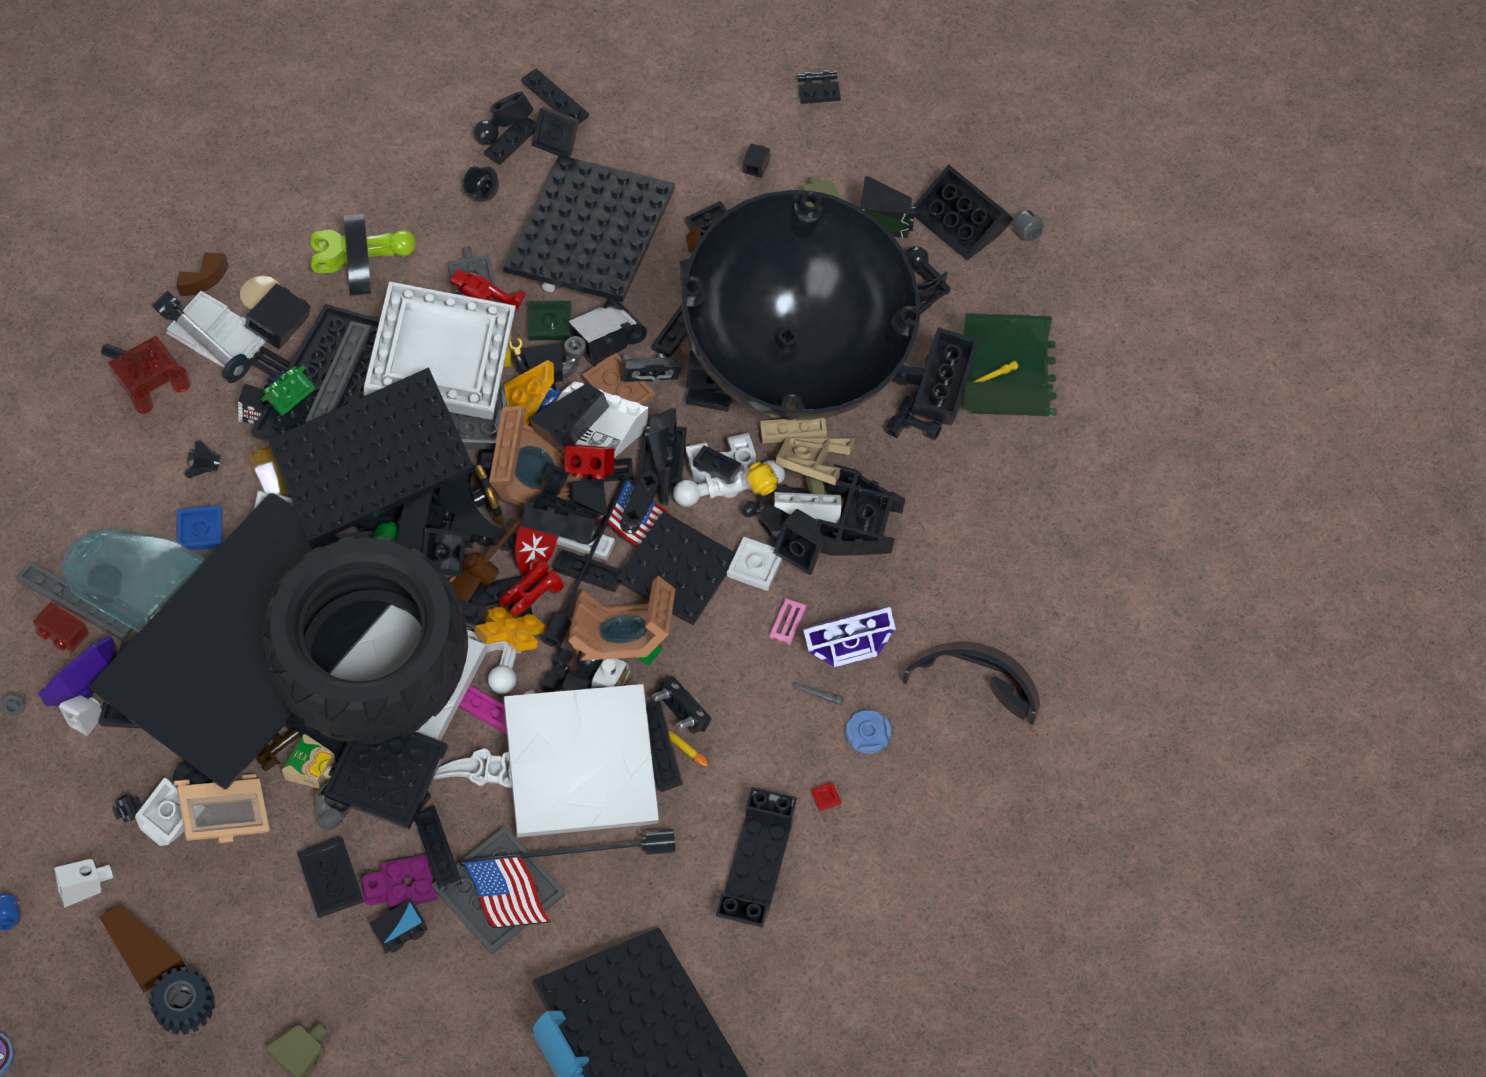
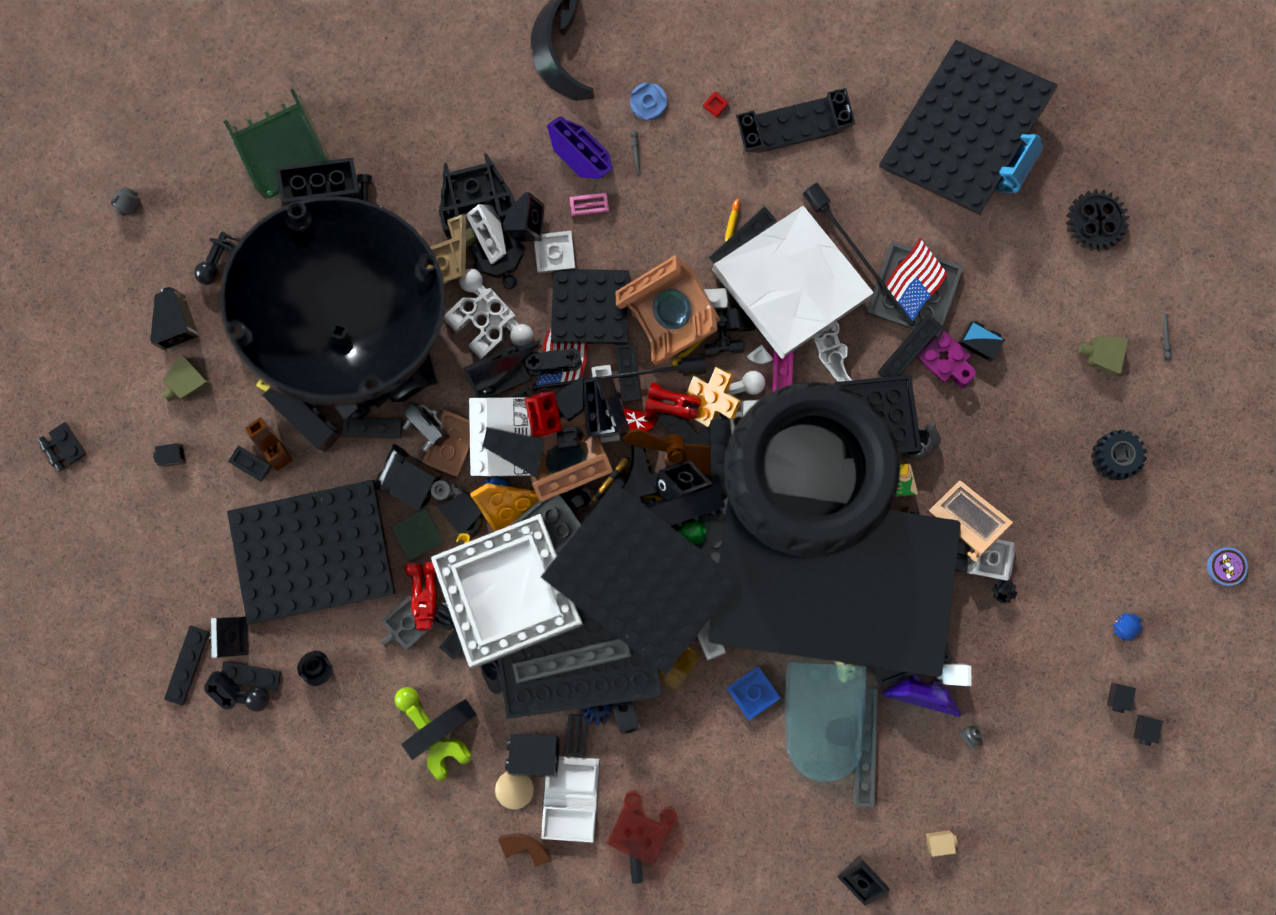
camera: 115 degrees left, 25 degrees up
(60, 628) = (895, 742): clear red brick -> none
(80, 880) = (1086, 587): white torso -> none
(140, 948) = (1099, 508): reddish brown slope -> none
(171, 309) = (574, 851): piece -> none
(201, 460) = (695, 731): black rock -> none
(288, 391) = (612, 689): green bracket -> none
(330, 877) = (971, 412): black plate -> none
(683, 705) = (702, 237): black piece -> none
(717, 464) = (490, 318): black plate -> none
(762, 478) = (486, 276): yellow head -> none
(961, 213) = (140, 260): black slope -> none
(1003, 370) = (279, 151): yellow piece -> none

